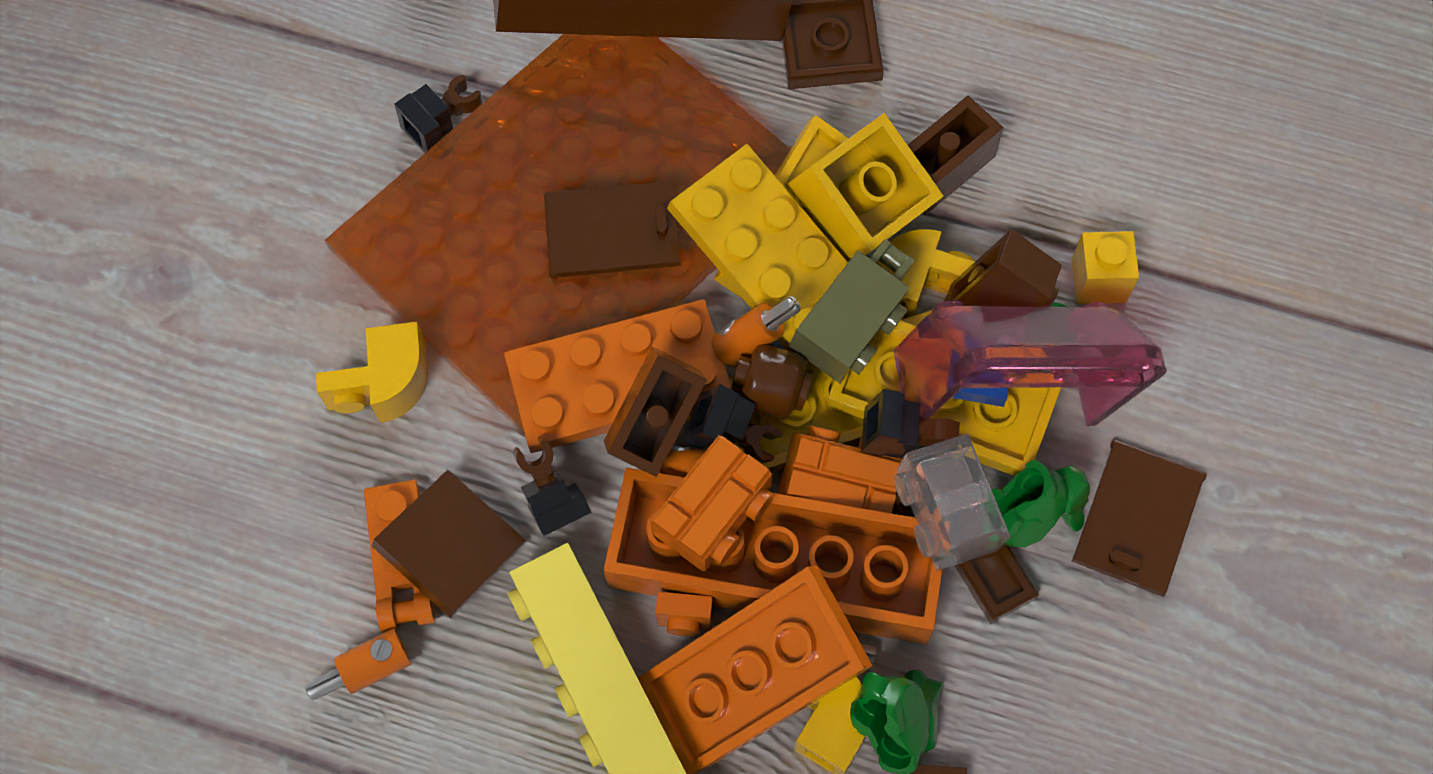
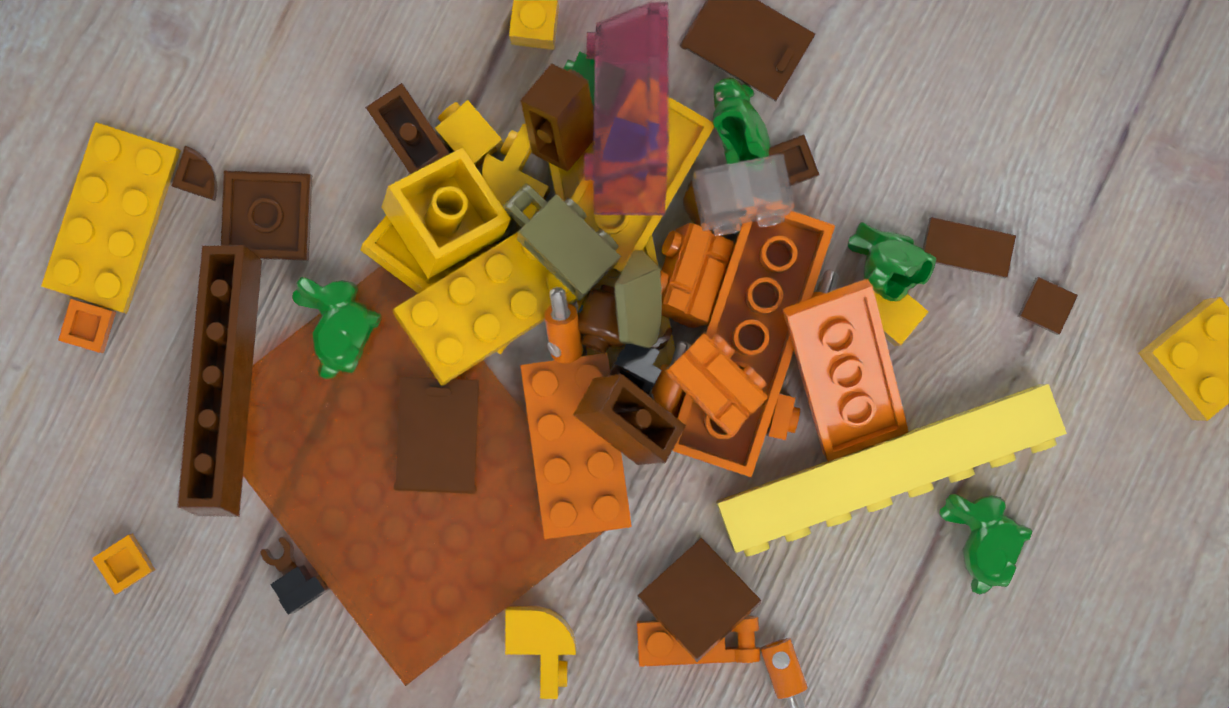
camera: 80 degrees left, 20 degrees up
(547, 496) = (675, 512): black piece -> none
(717, 112) = (342, 324): none -> green animal
(795, 395) = (639, 301): none -> olive slope
(894, 426) = (670, 223): black piece -> none
(961, 215) = (466, 128): none -> yellow brick

